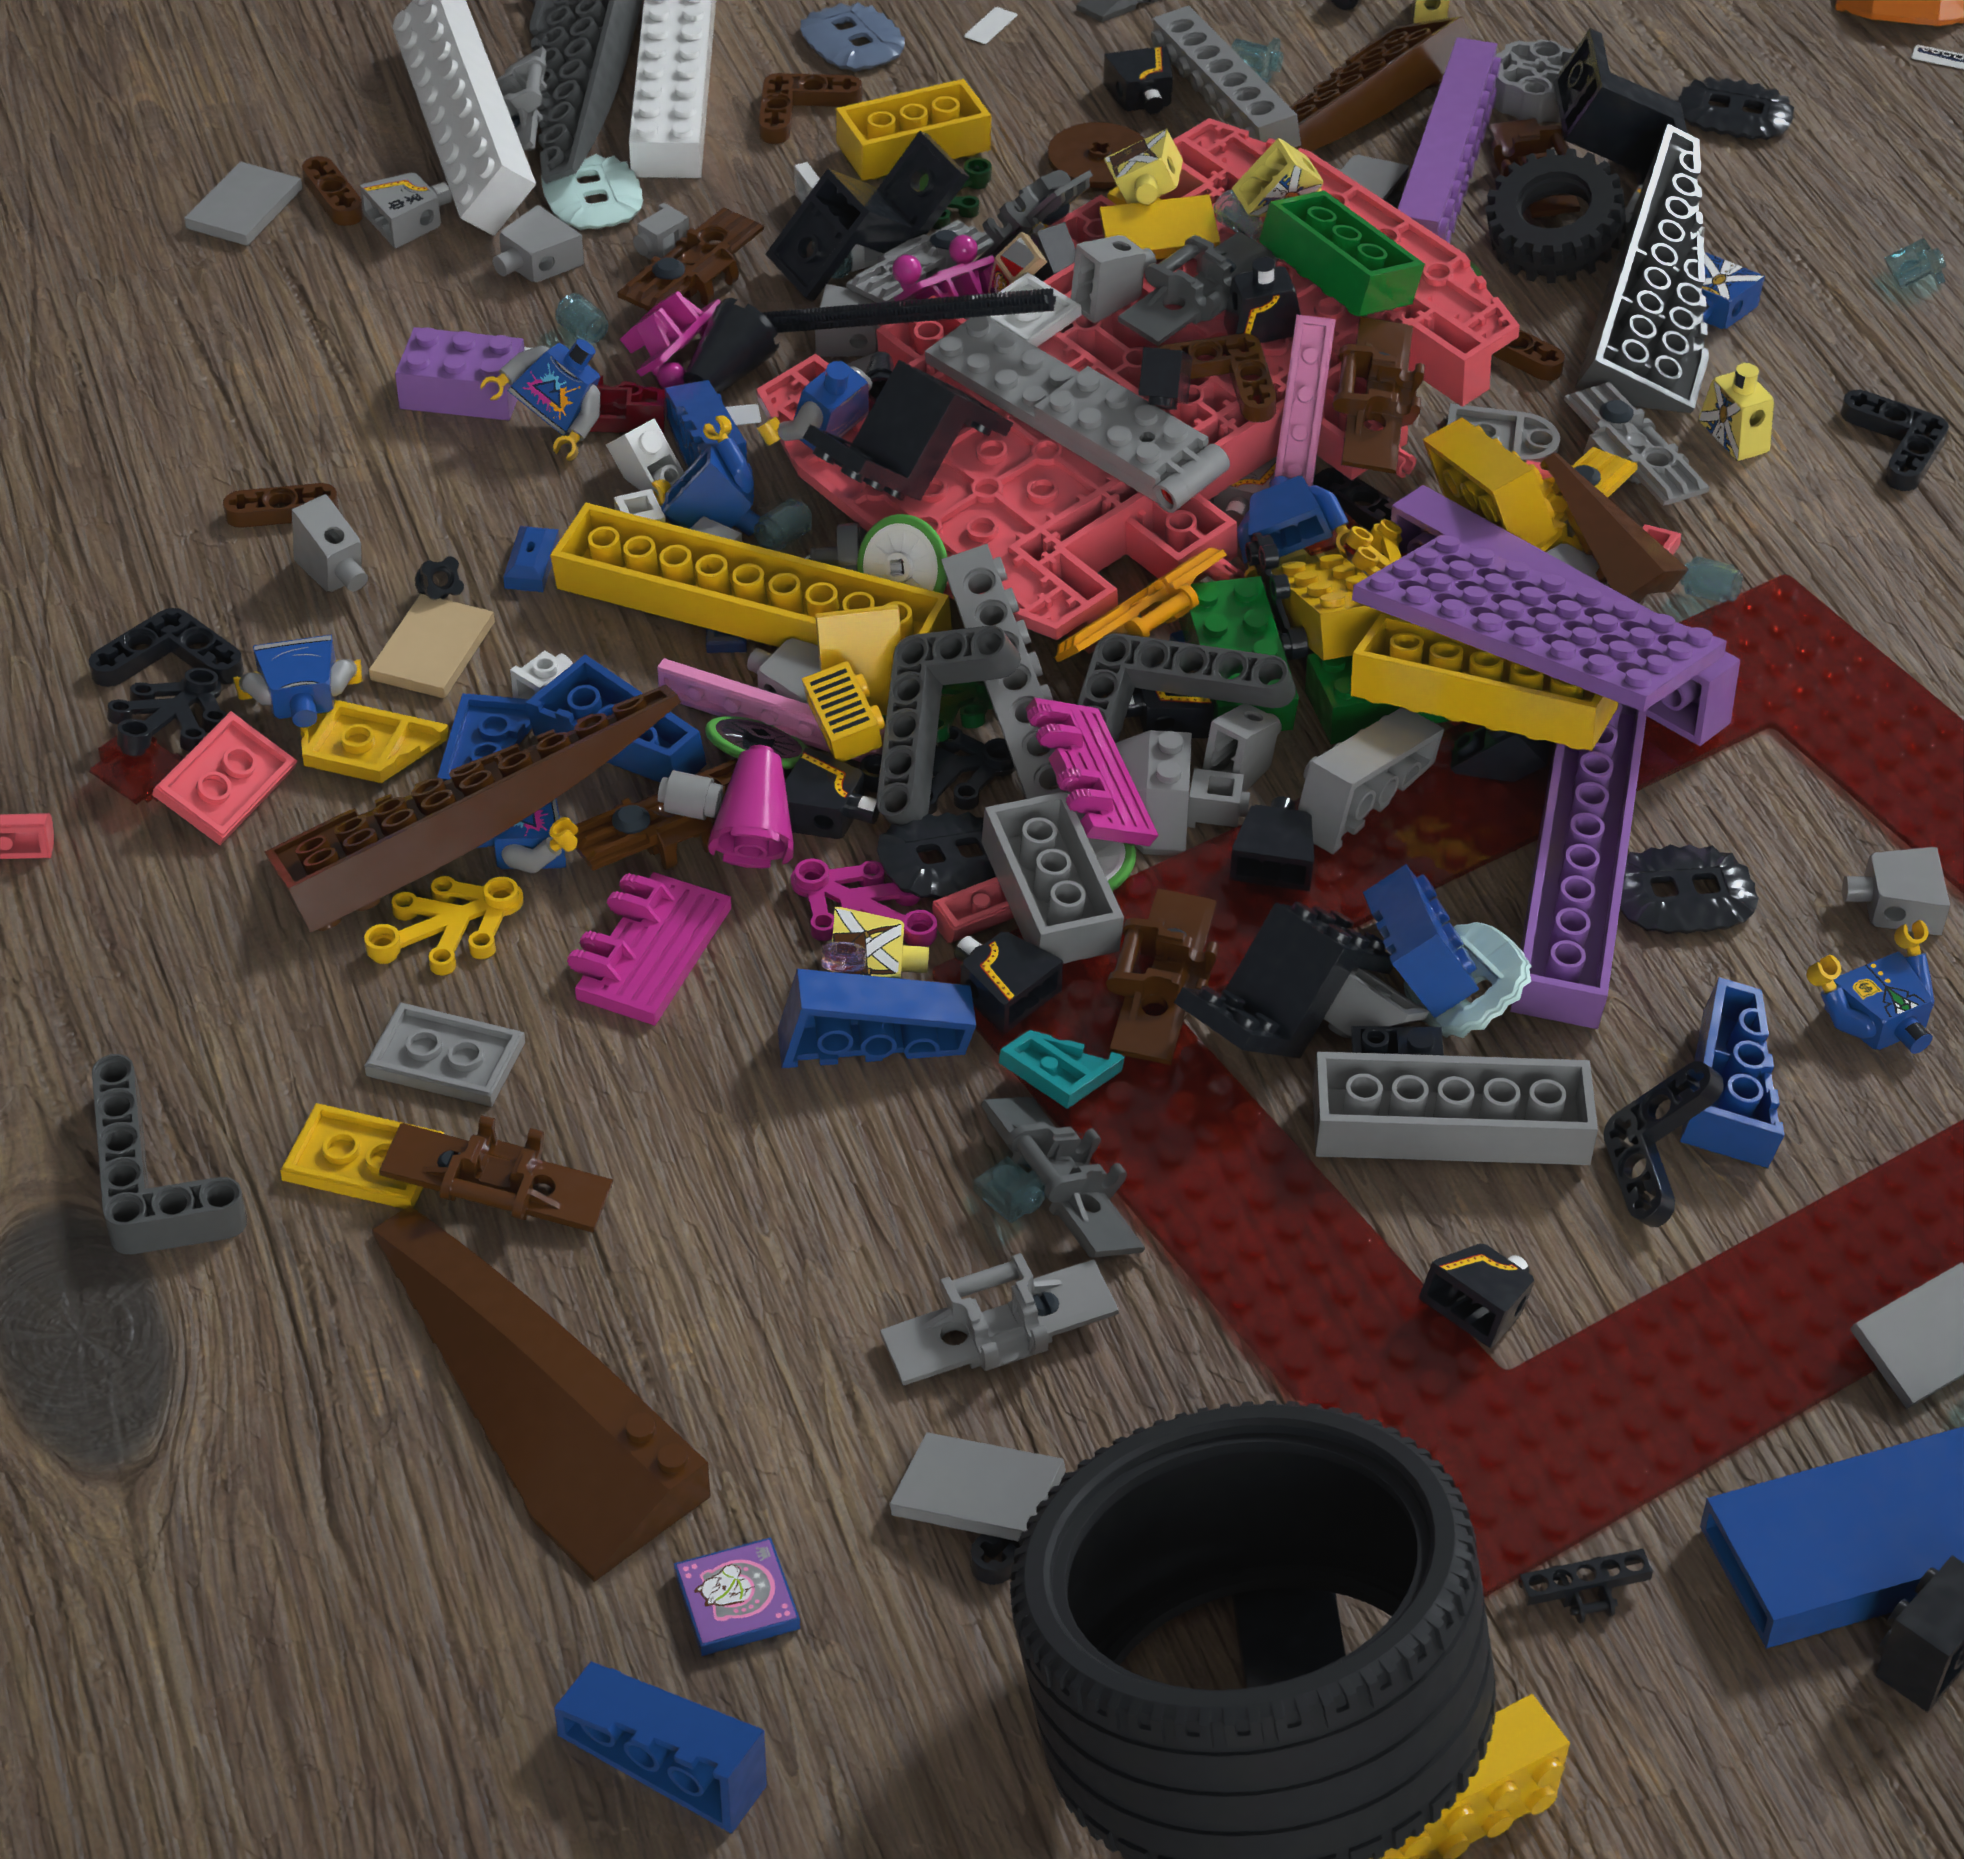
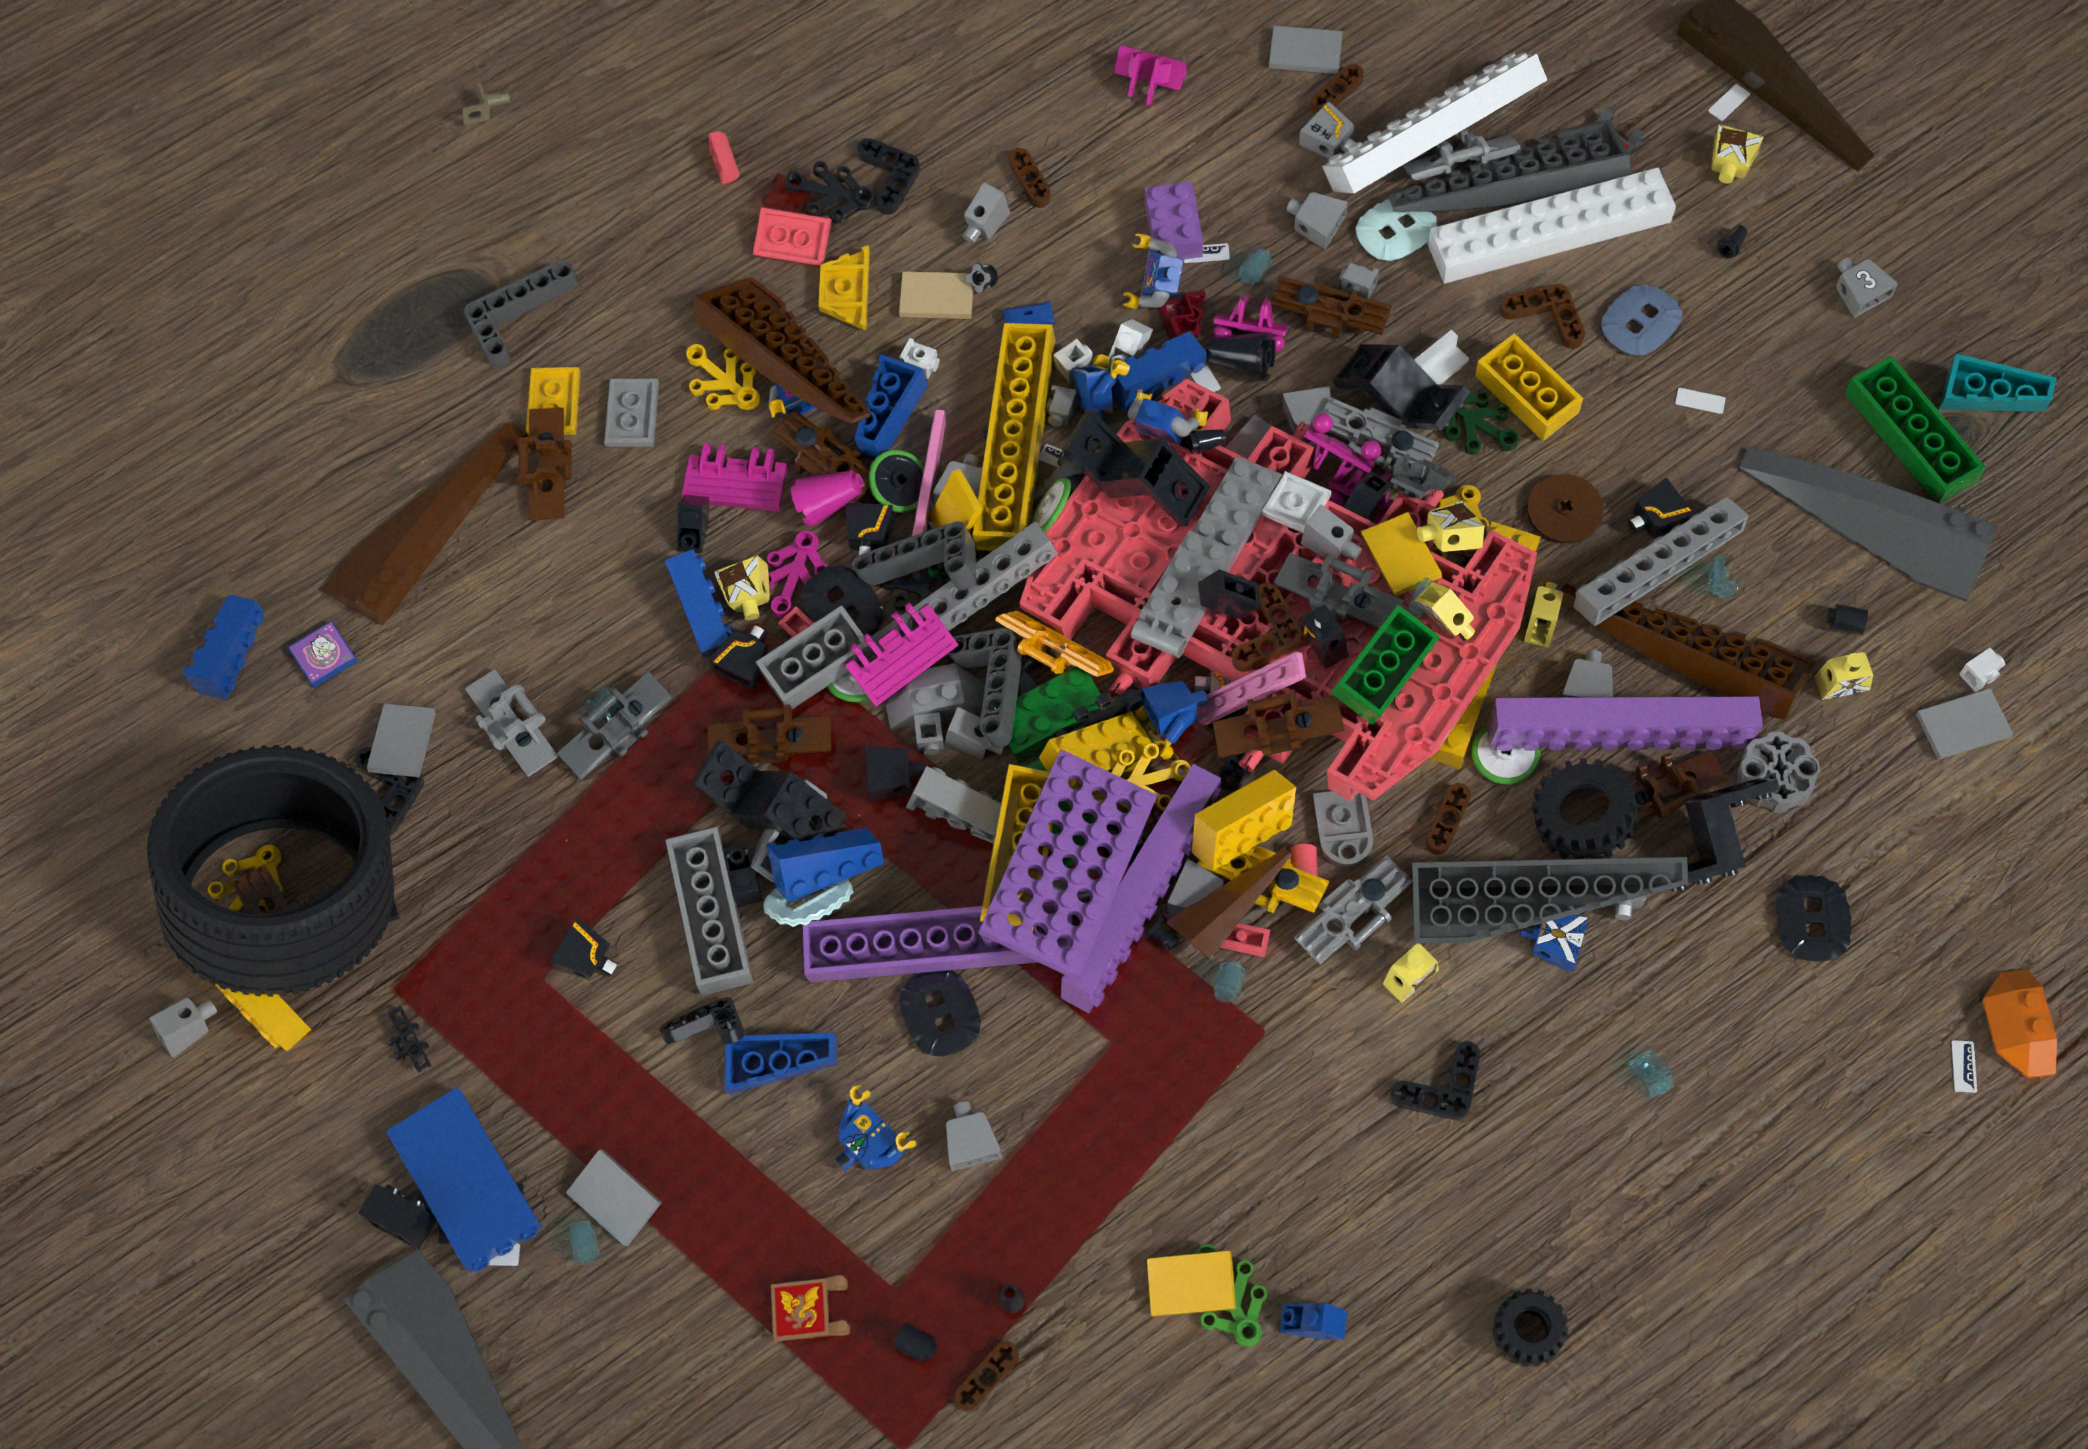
camera: 80 degrees right, 20 degrees up
(178, 339) = (1149, 68): none -> dark pink piece
(298, 678) = (868, 242): blue torso -> none
(482, 728) = (861, 345): blue wing -> none
(690, 795) = (821, 457): light grey brick -> none
(712, 1003) = (692, 523): none -> black slope
(843, 712) = (914, 512): yellow brick -> none
(843, 957) = (719, 571): clear purple tile -> none
(913, 310) = (1277, 429): black axle -> none
(1015, 261) = (1341, 486): slope -> none
(1058, 1066) = (686, 702): teal wing -> none

